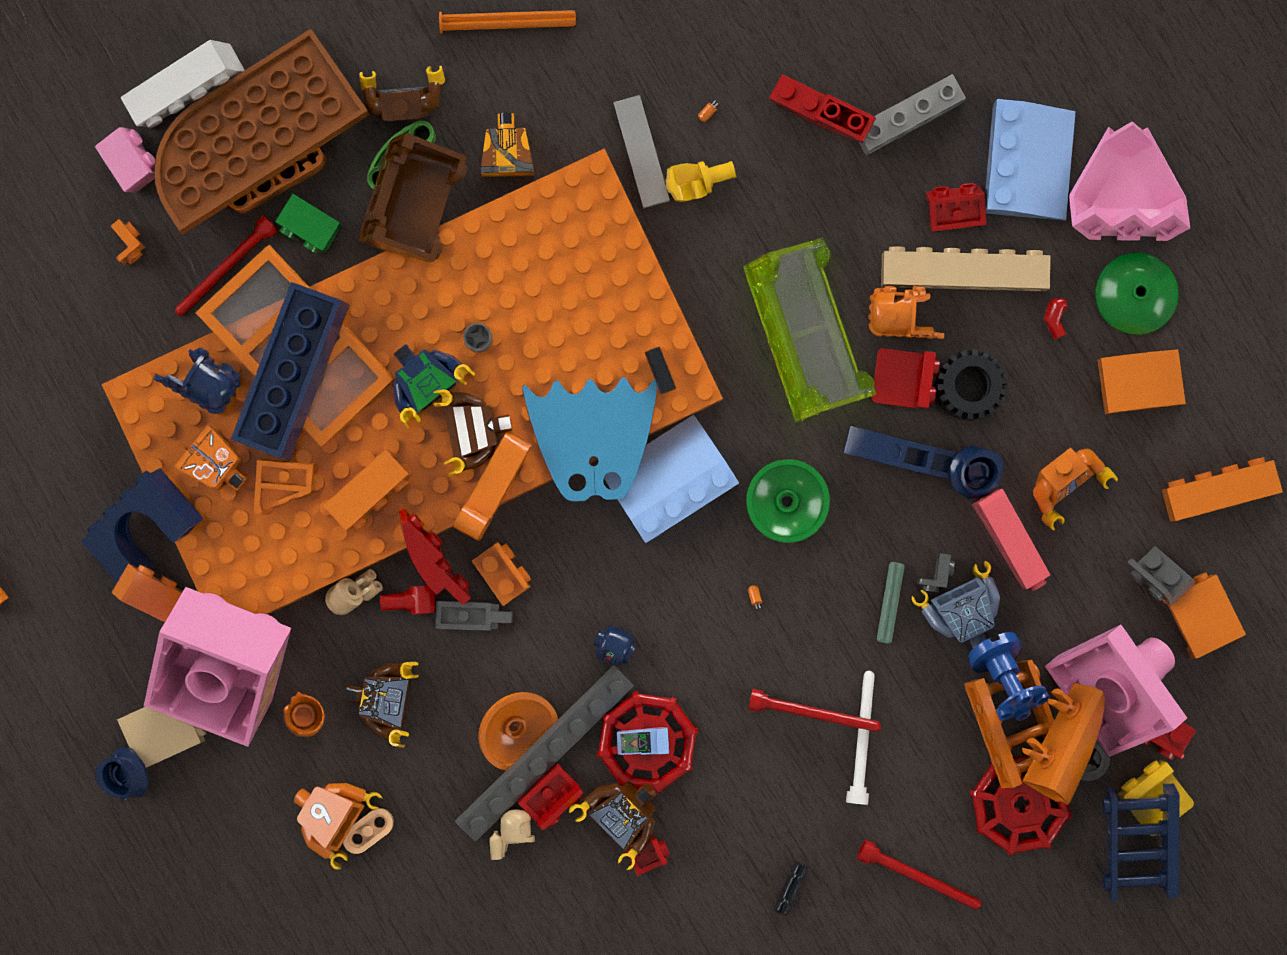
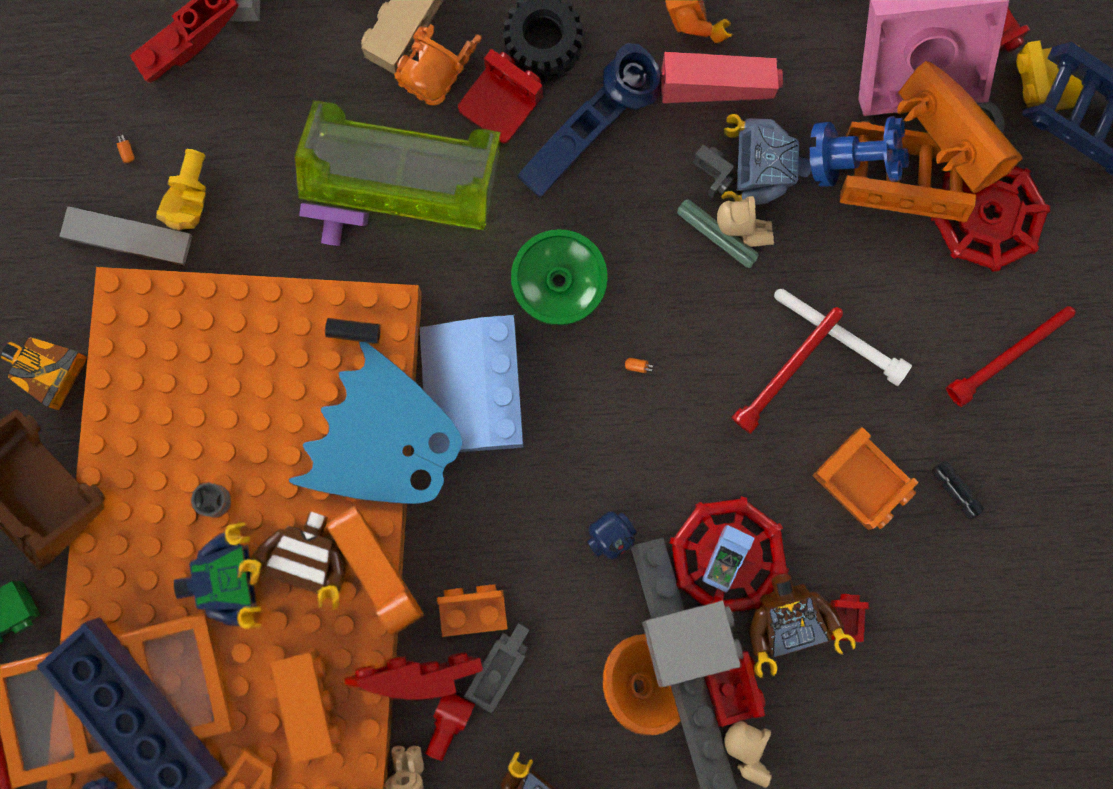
camera: 60 degrees left, 5 degrees down
(566, 749) = (692, 643): none -> light grey panel
(740, 303) = (333, 220): none -> medium lavender tile
(760, 815) = (865, 480): none -> orange panel
(907, 613) = (740, 219): none -> tan piece

